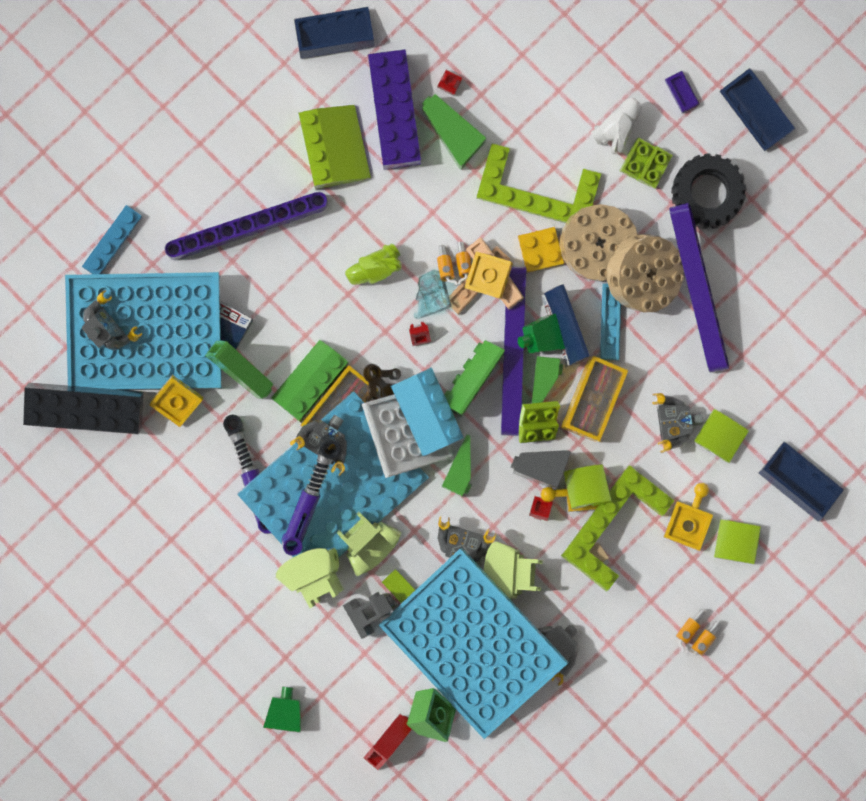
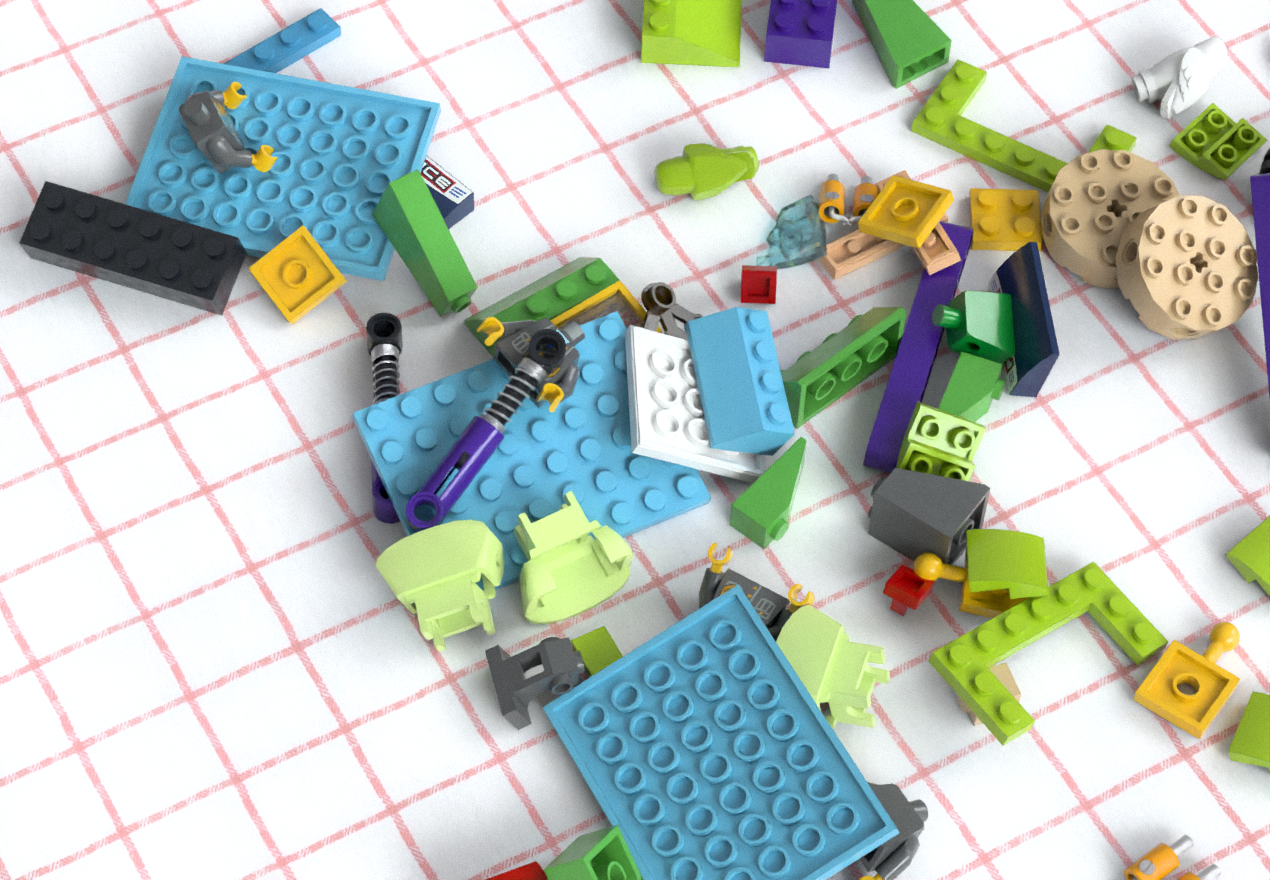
camera: 15 degrees right, 30 degrees down
(236, 225) = (512, 74): dark purple beam -> none
(284, 712) = (308, 812): green torso -> none
(594, 399) = (1050, 443): clear brick -> none
(610, 326) = (1105, 349): medium azure tile -> none
(674, 421) = (1194, 509): dark grey torso -> none

